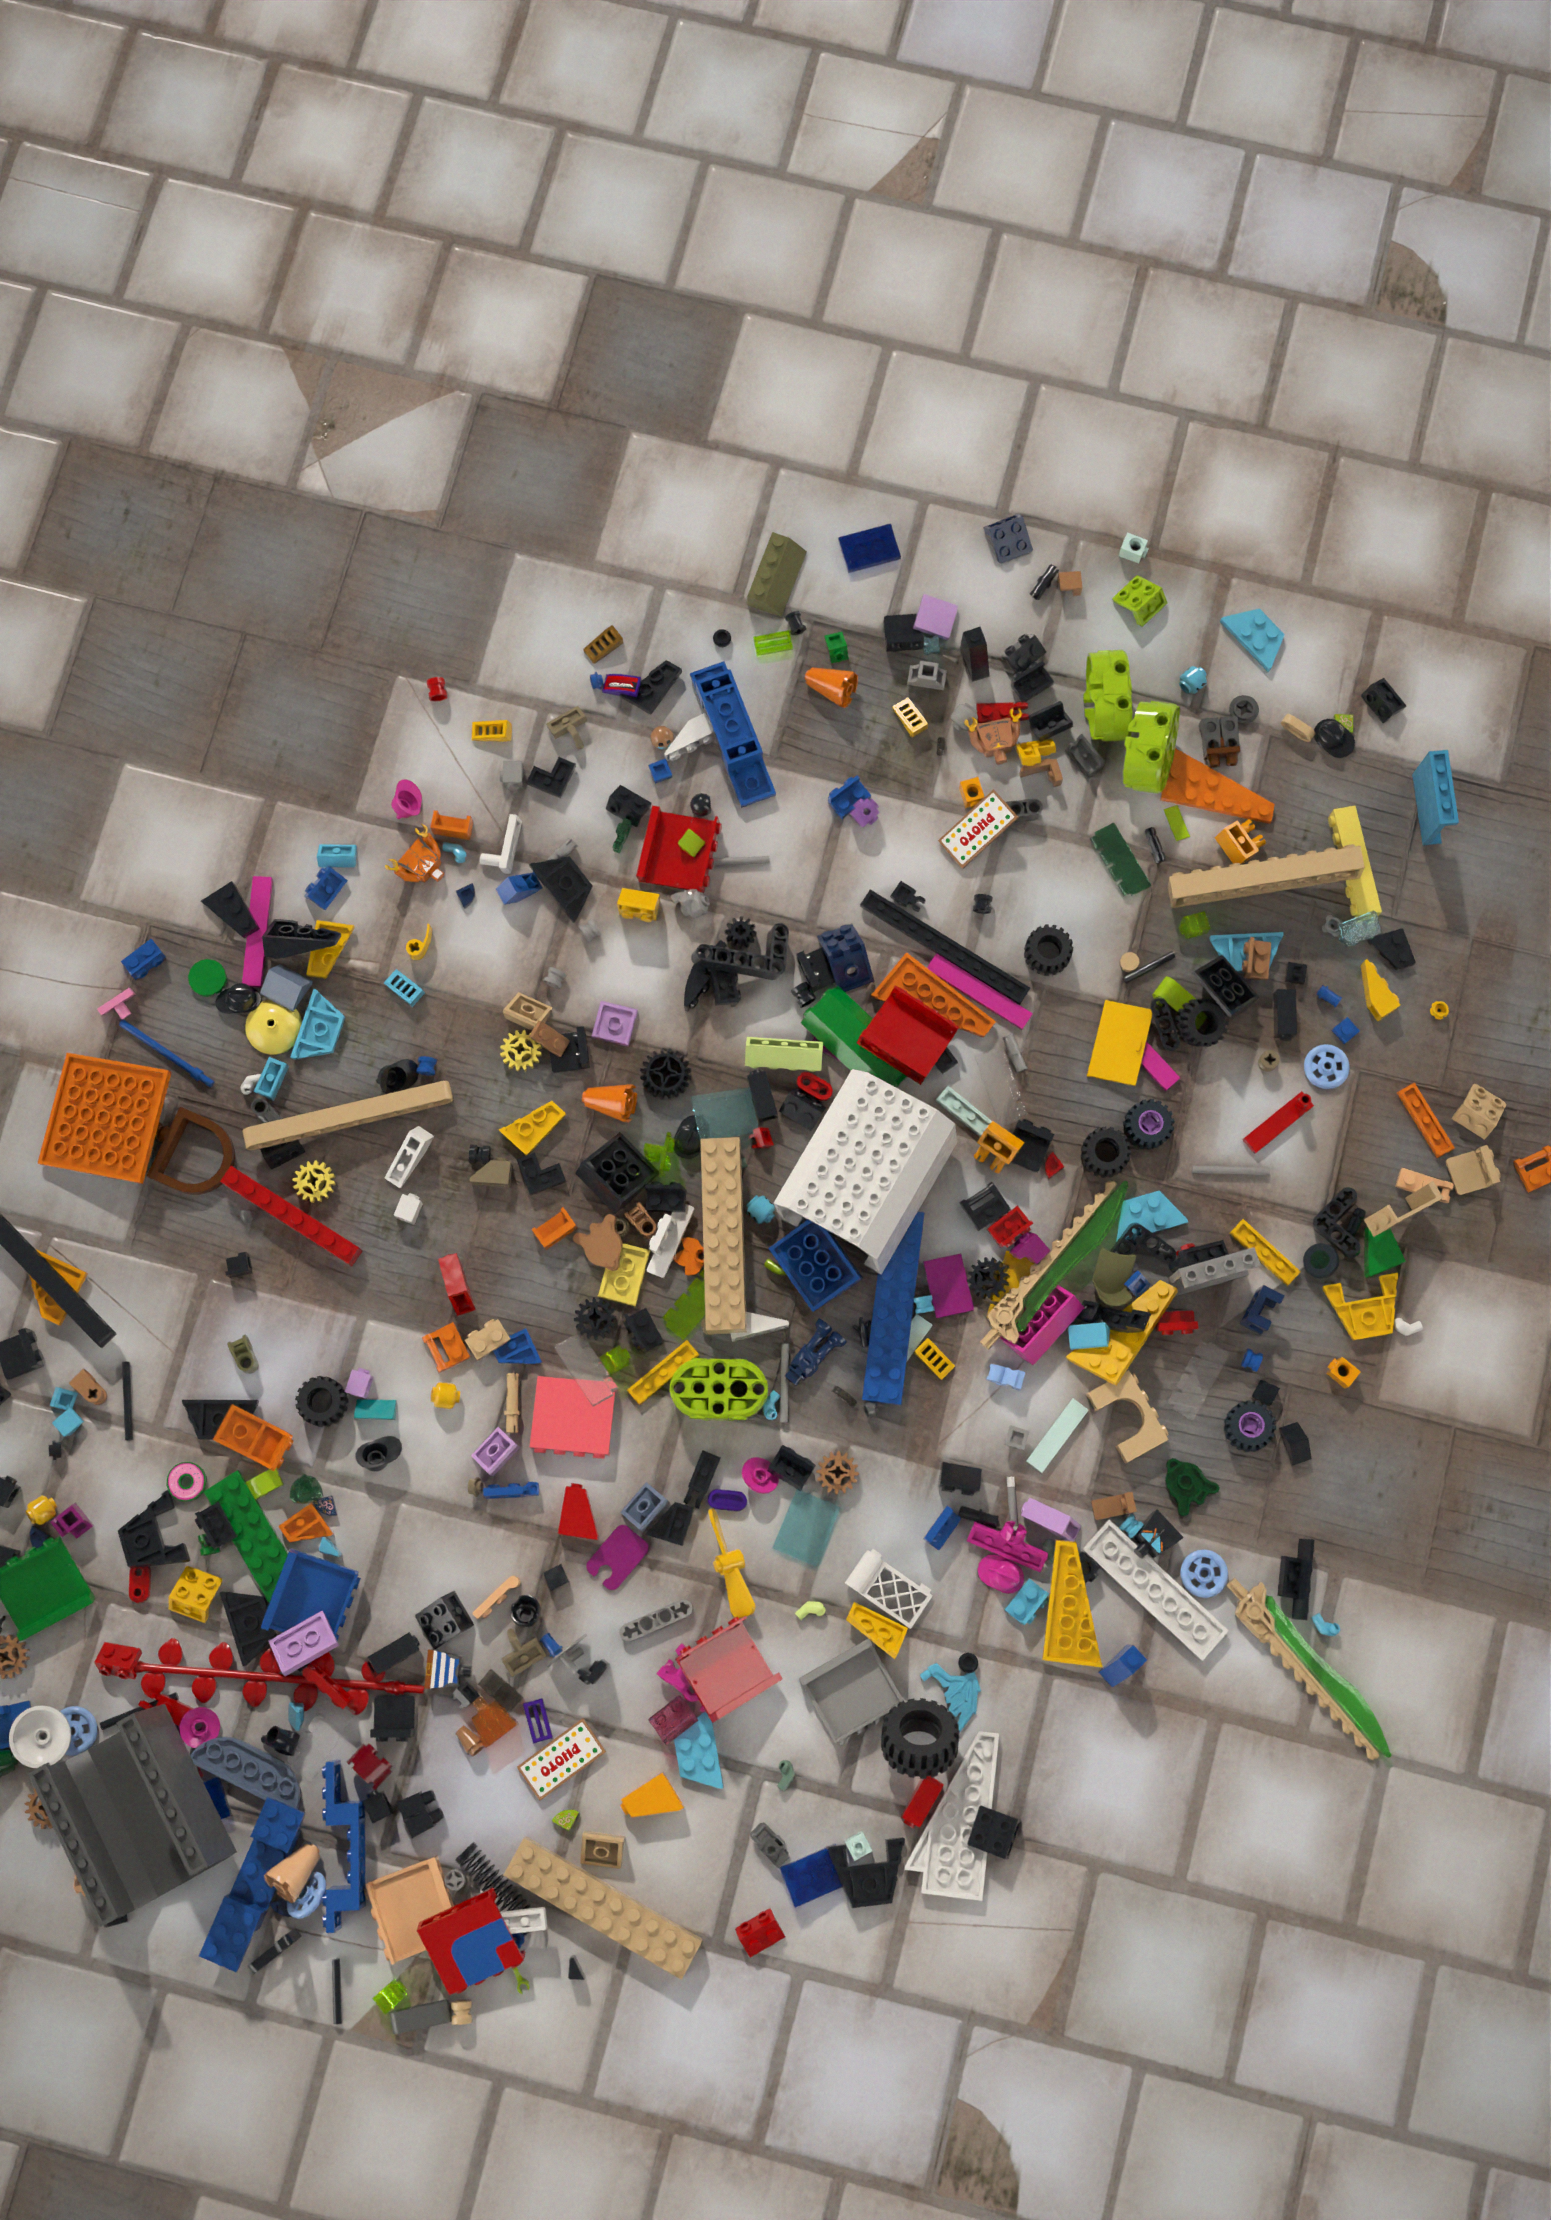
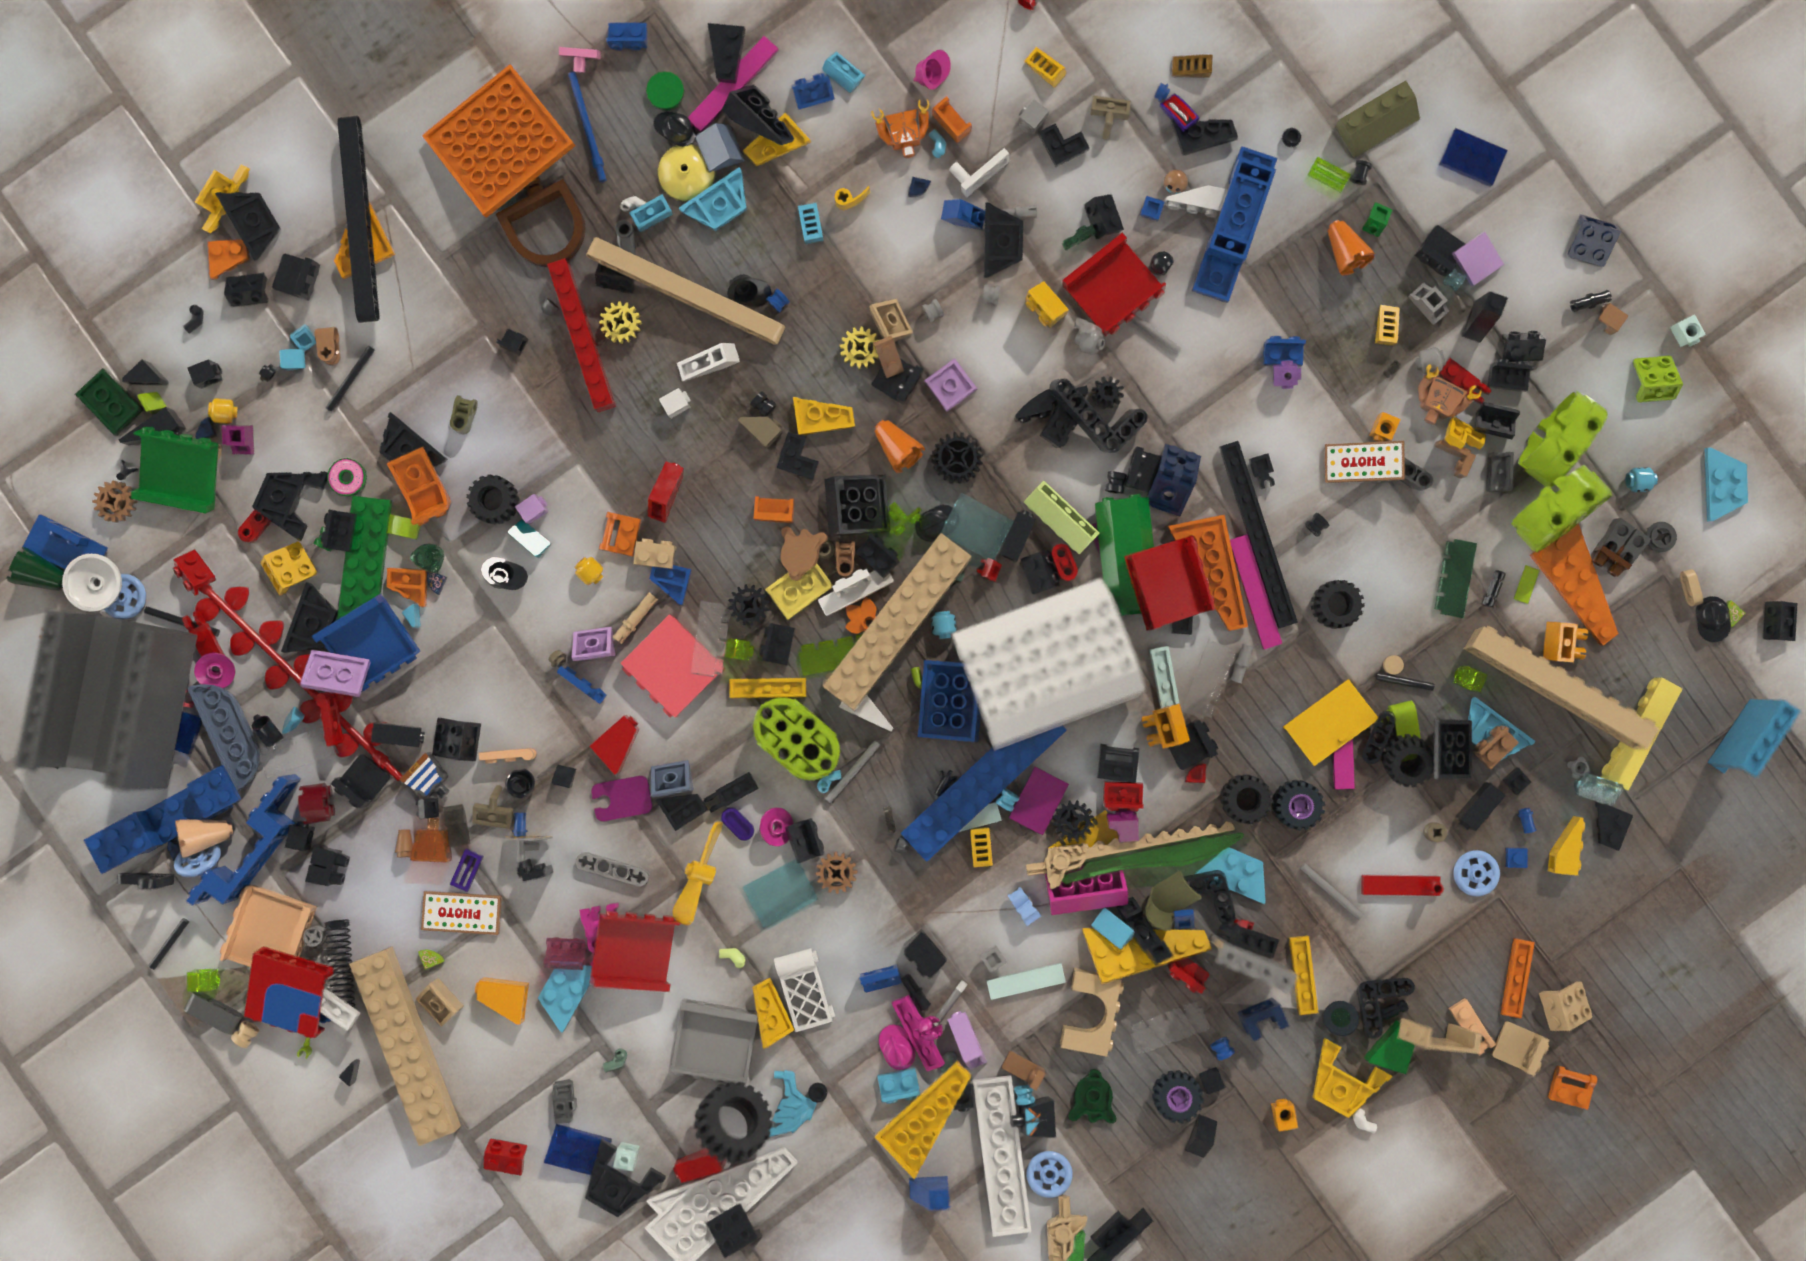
camera: 45 degrees right, 10 degrees up
(691, 843) = (1128, 288): lime slope -> none
(806, 1361) = (882, 769): dark blue piece -> none
(1439, 1005) = (1609, 902): yellow plate -> none

